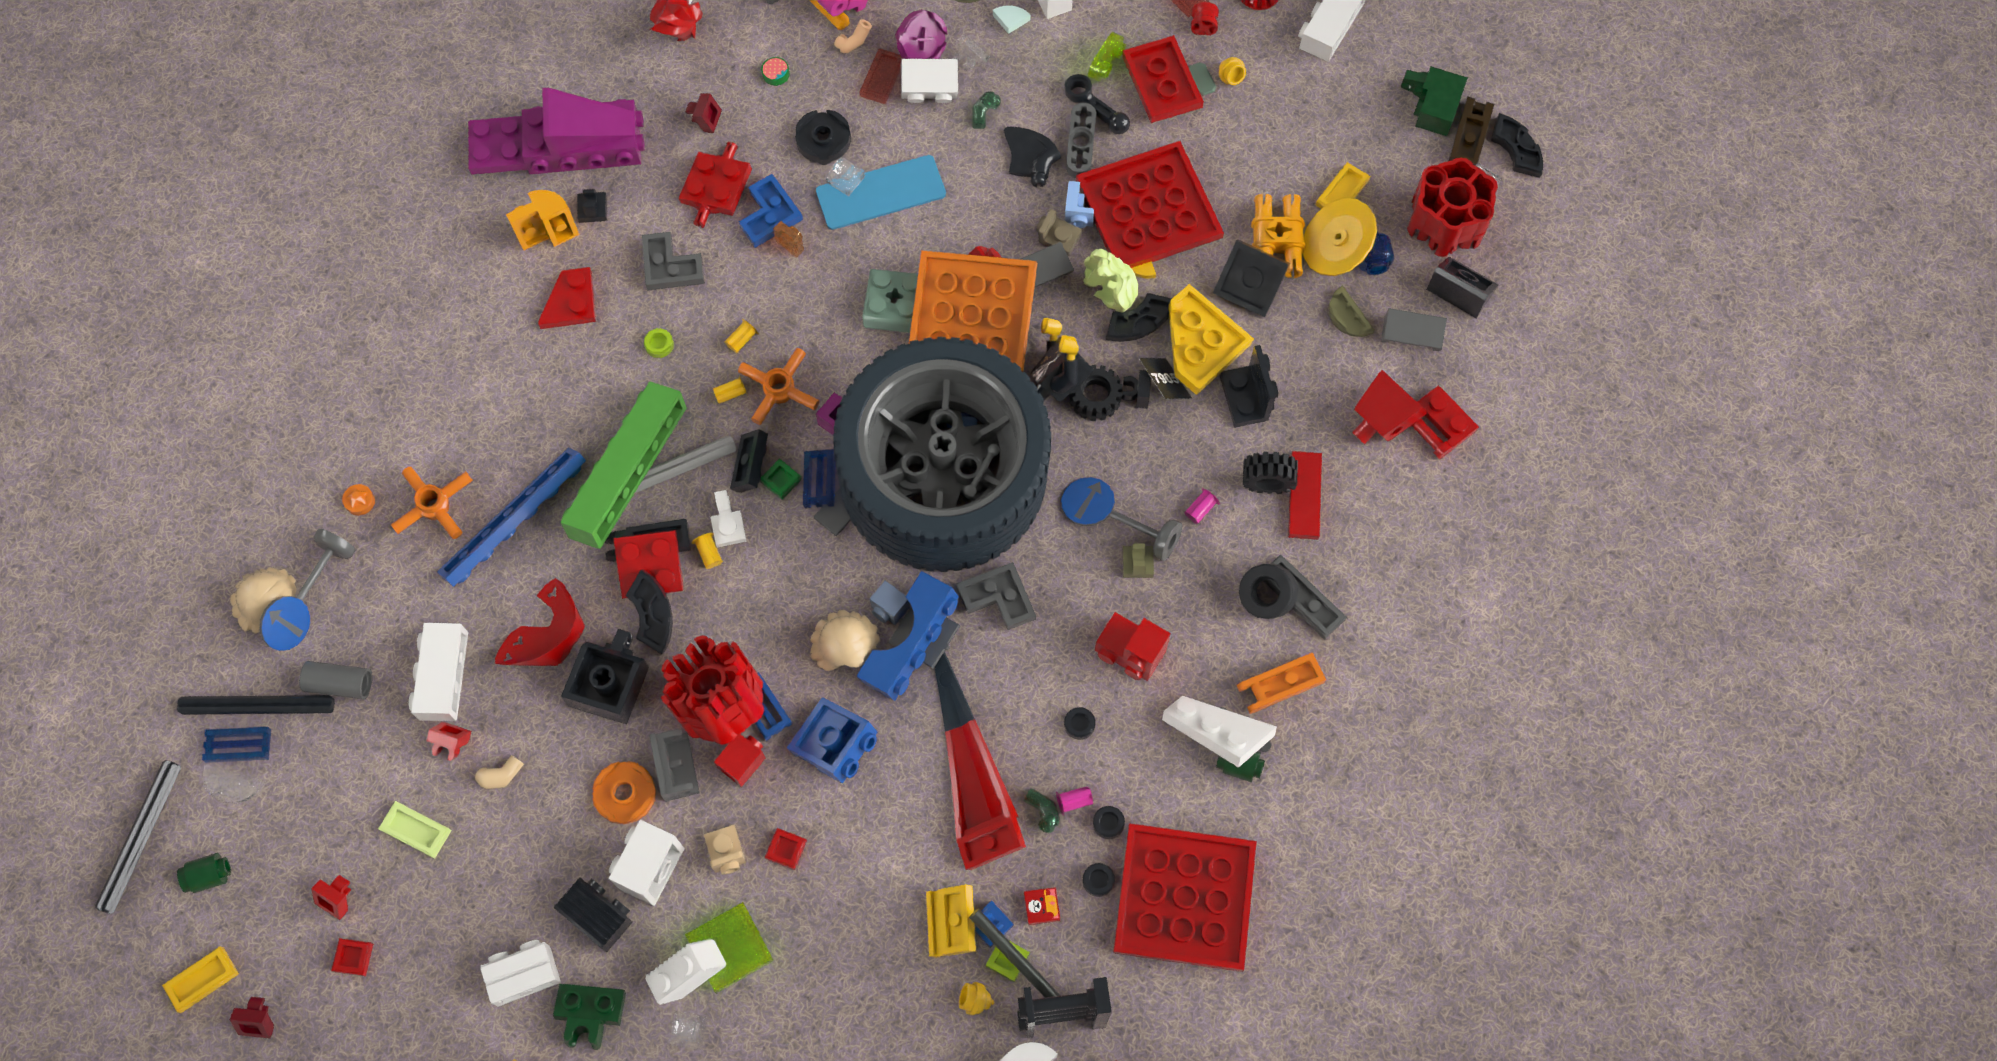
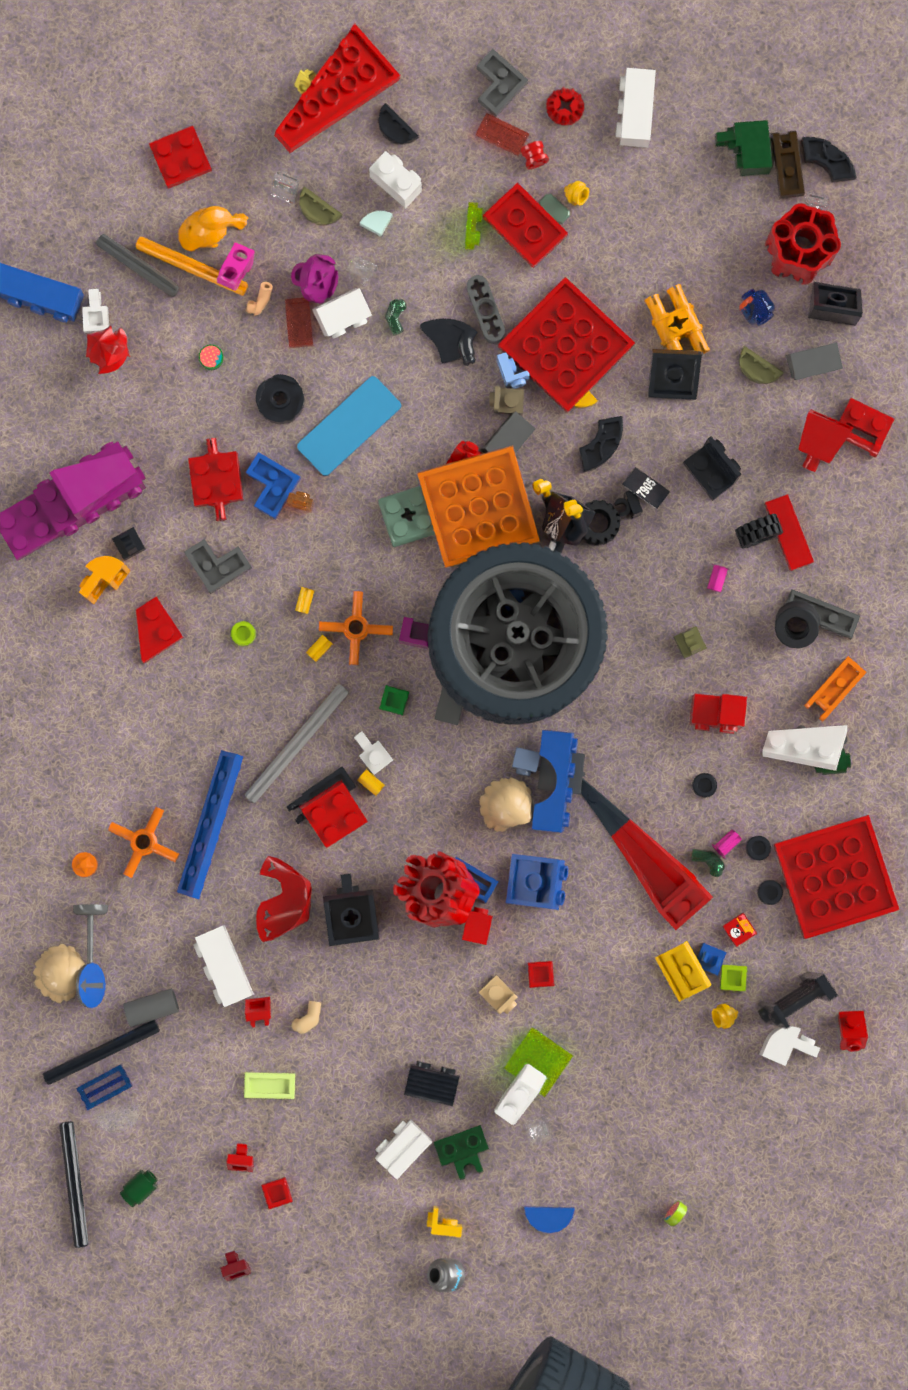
camera: 30 degrees left, 15 degrees up
(200, 979) = (179, 1258): yellow tile -> none
(623, 465) = (275, 747): bright green brick -> none
(636, 805) = (407, 1003): orange tile -> none
(645, 862) = (453, 1033): white brick -> none
(653, 611) = (356, 847): black tile -> none
(674, 764) = (431, 952): dark grey hinge -> none
(705, 112) = (176, 422): dark red tile -> none
(749, 461) = (365, 698): black plate -> none
(819, 500) = (433, 705): clear blue tile -> none
(845, 176) = (316, 427): clear tile -> none
(970, 490) = (554, 657): dark grey hinge -> none
(998, 587) = (603, 710): dark grey plate -> none
(1013, 954) = (743, 977): pearl dark grey bar -> none
(1092, 502) = (634, 612): piece -> none
(1114, 276) = (574, 425): yellowish green hair -> none
(1117, 121) = (507, 280): black piece -> none
(1202, 339) = (658, 441): yellow plate -> none
(1339, 237) = (727, 308): yellow piece -> none
(1346, 184) = (708, 261): yellow tile -> none

